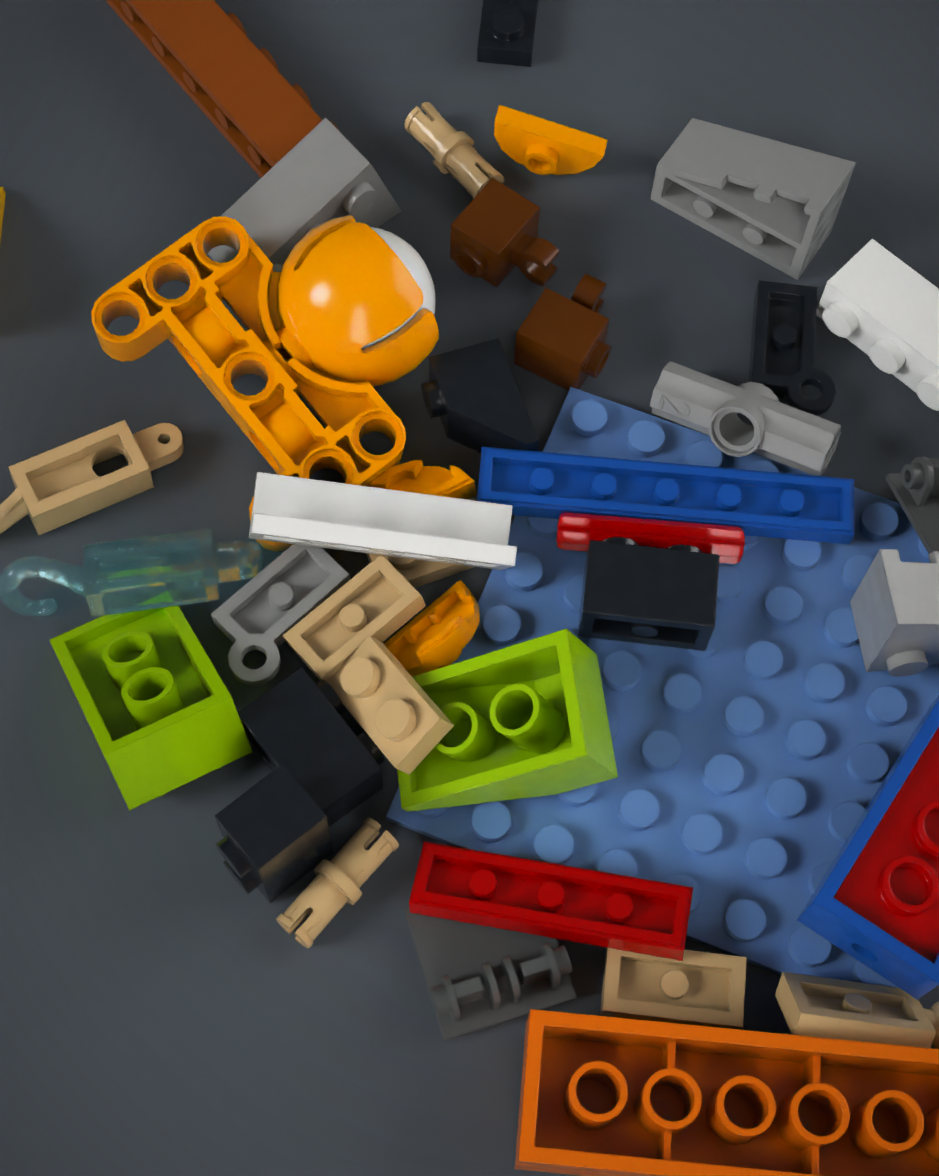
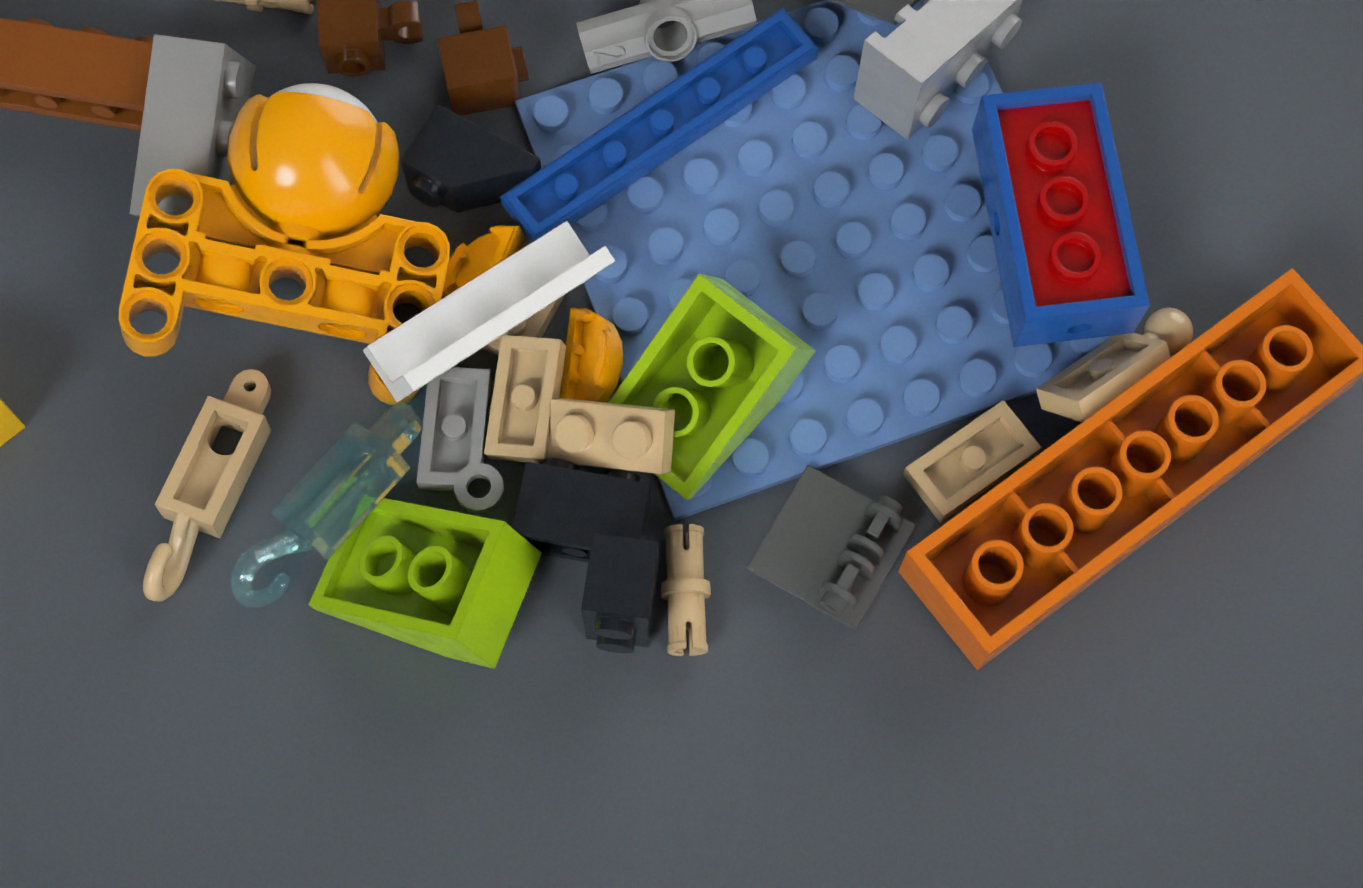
camera: 40 degrees left, 5 degrees up
(552, 900) = (843, 474): red tile -> none
(577, 529) = (679, 165): red axle -> none
(649, 594) = (718, 205): black brick -> none

